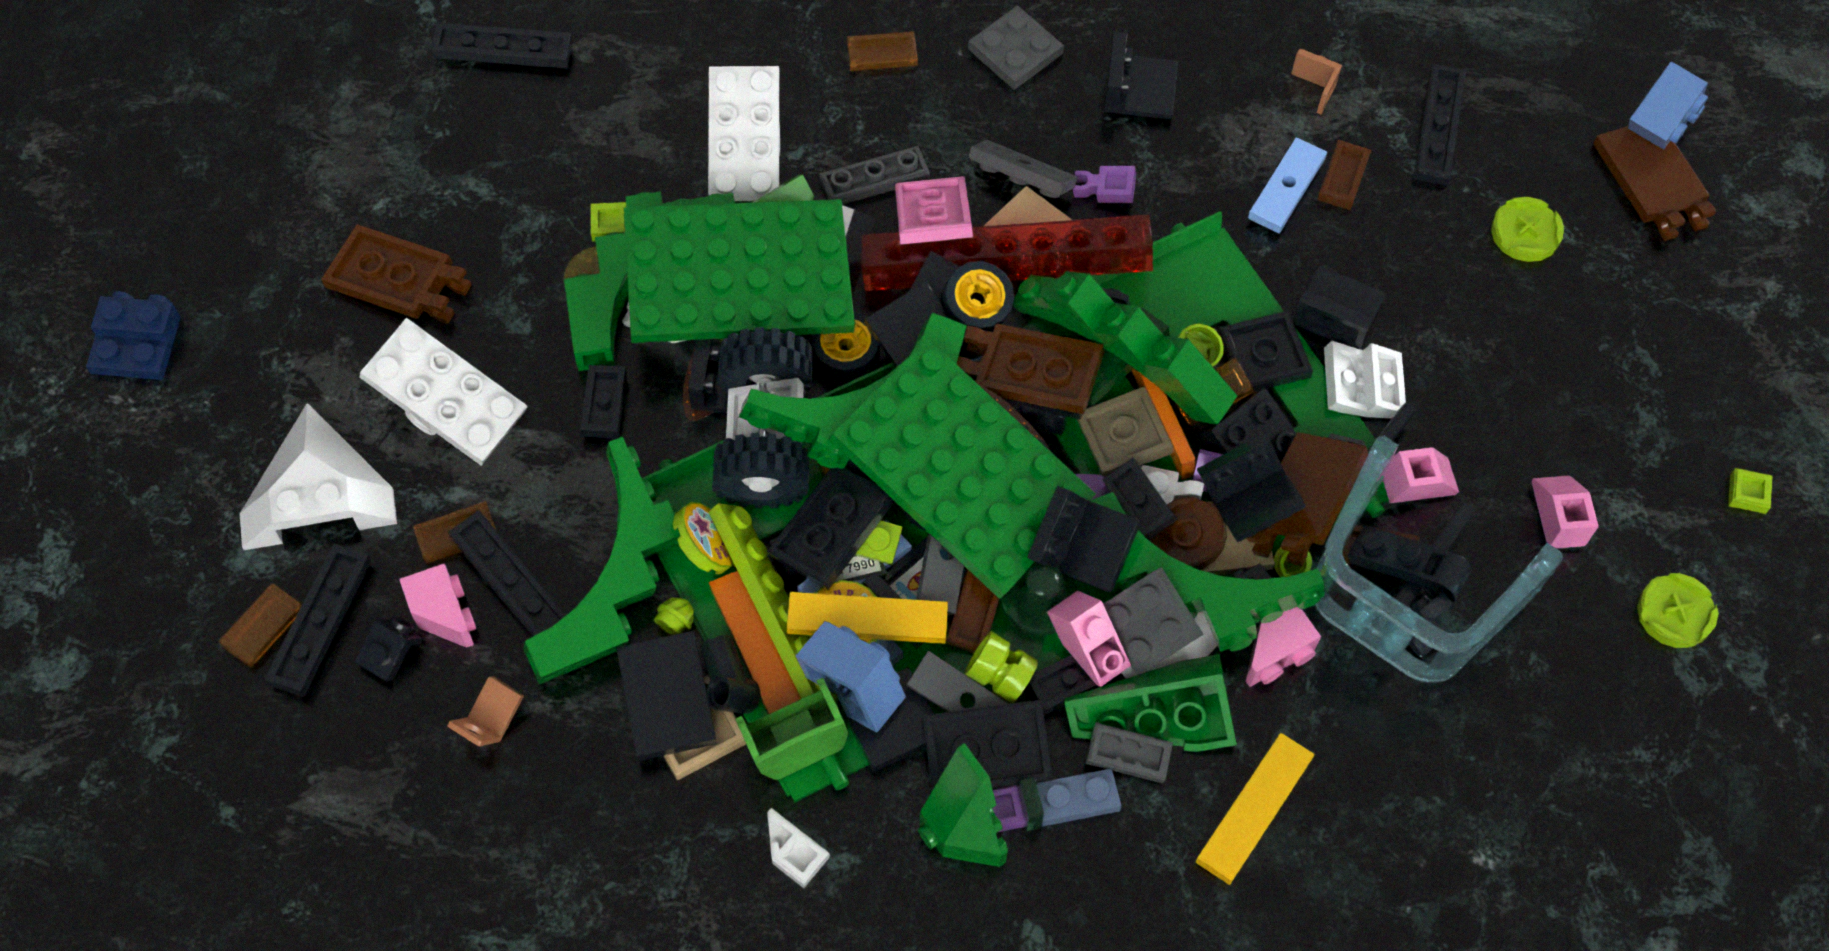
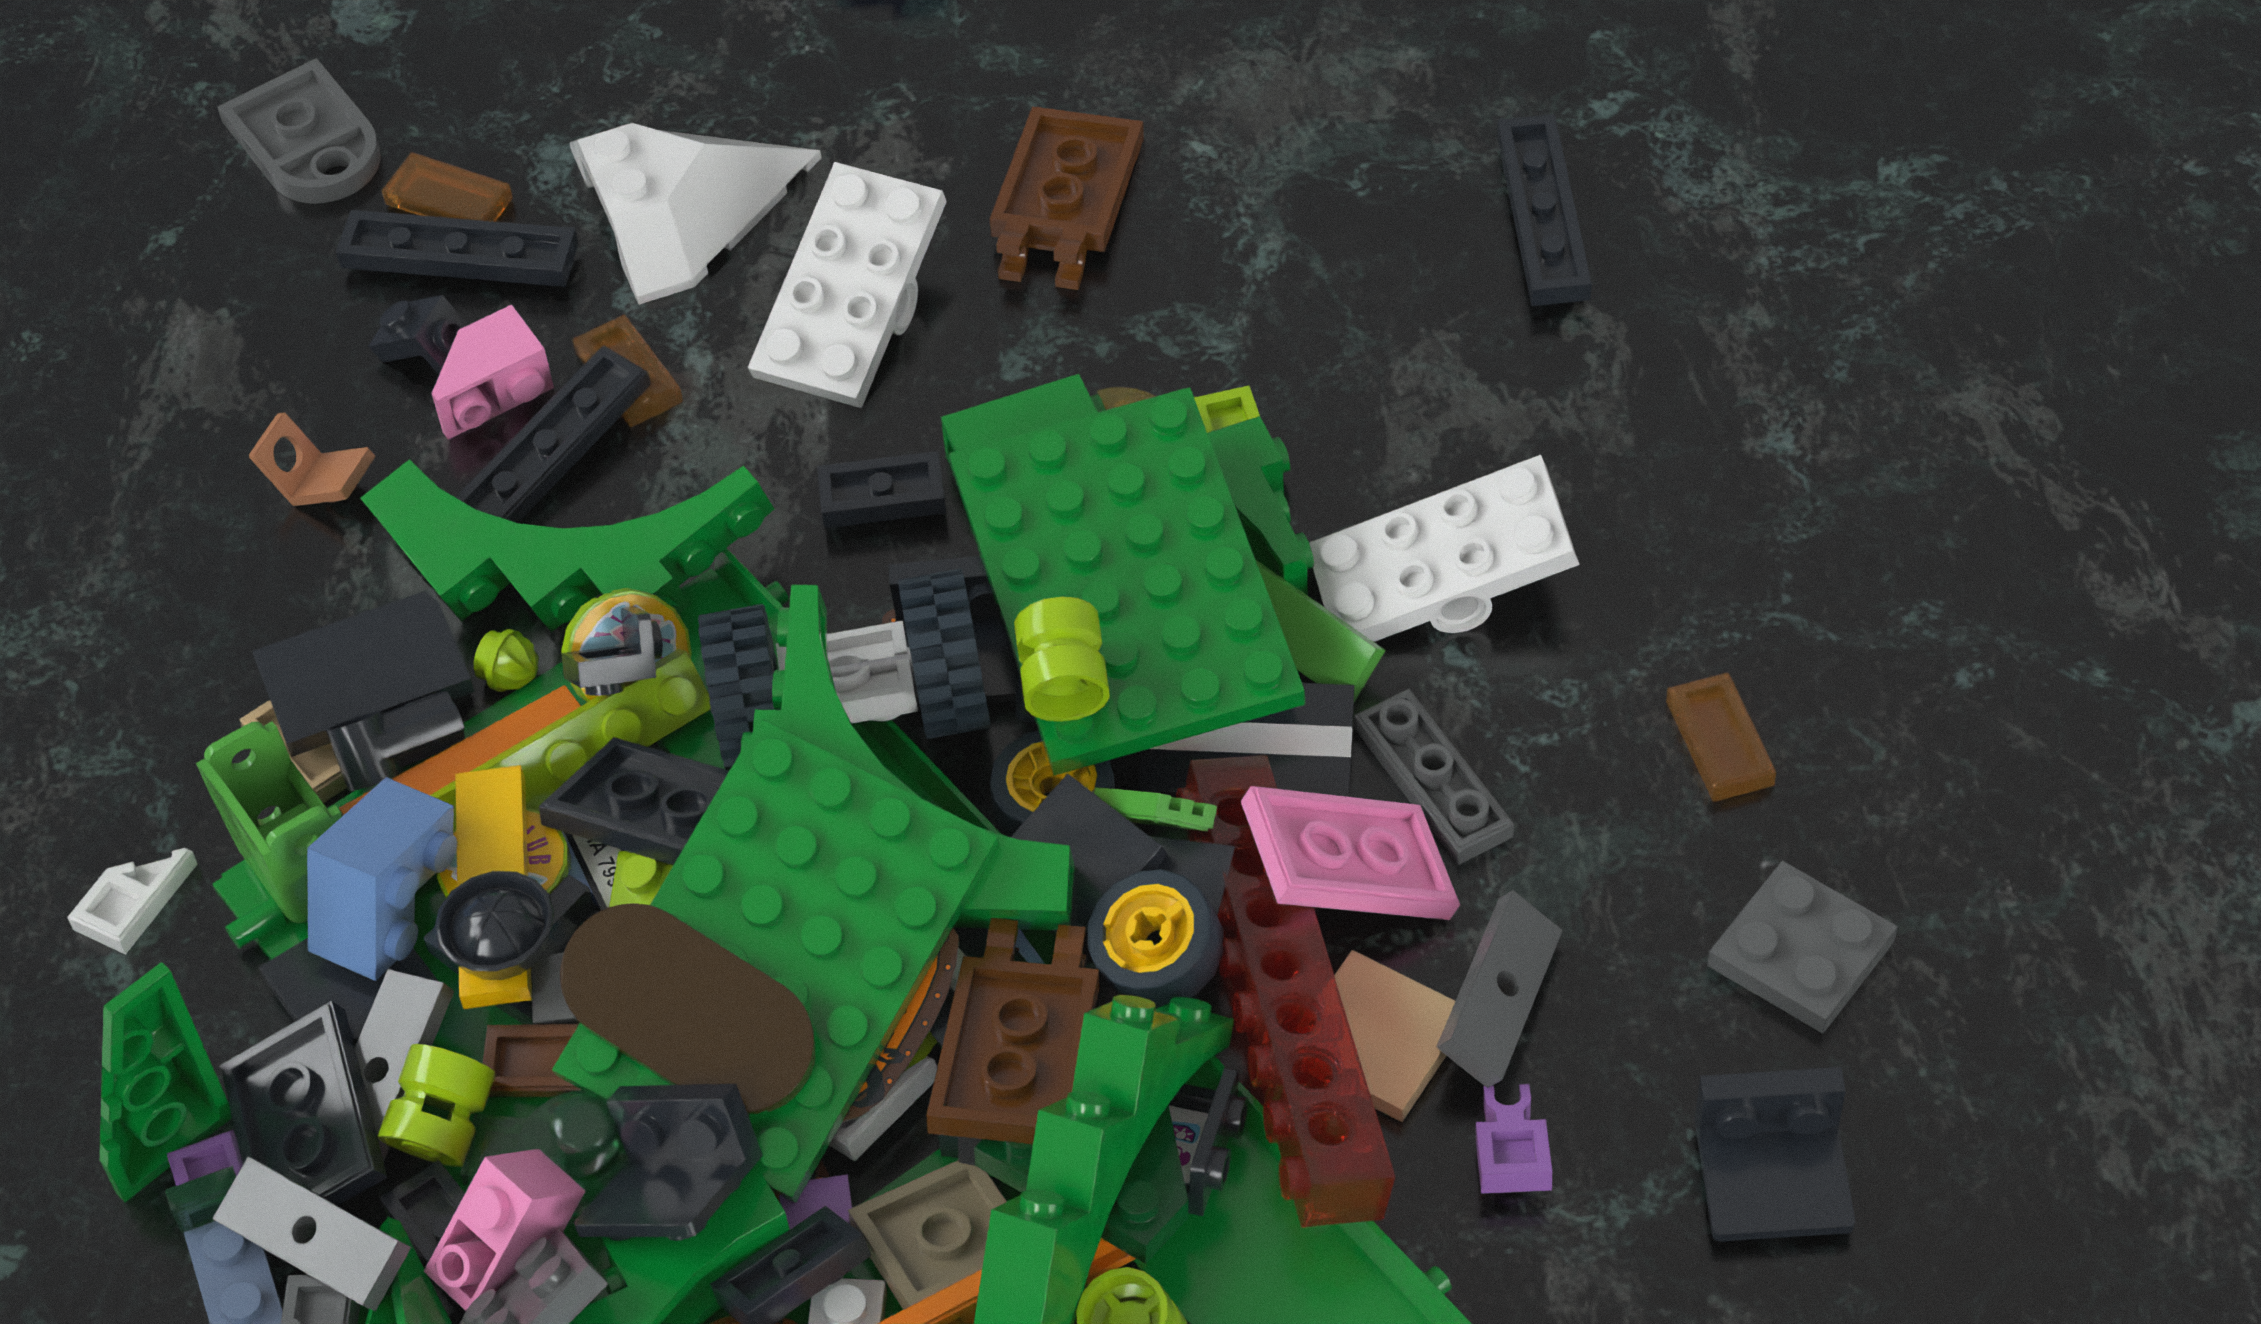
camera: 85 degrees right, 10 degrees down
(166, 713) = (302, 129): none -> dark grey tile
(724, 532) = (607, 668): none -> black bracket
(811, 293) = (1061, 660): none -> lime wheel
(892, 285) = (1159, 809): none -> bright green tile
(912, 605) = (495, 924): none -> black hat
(996, 509) = (686, 1006): none -> dark brown tile
(1095, 718) = (312, 1233): none -> tile

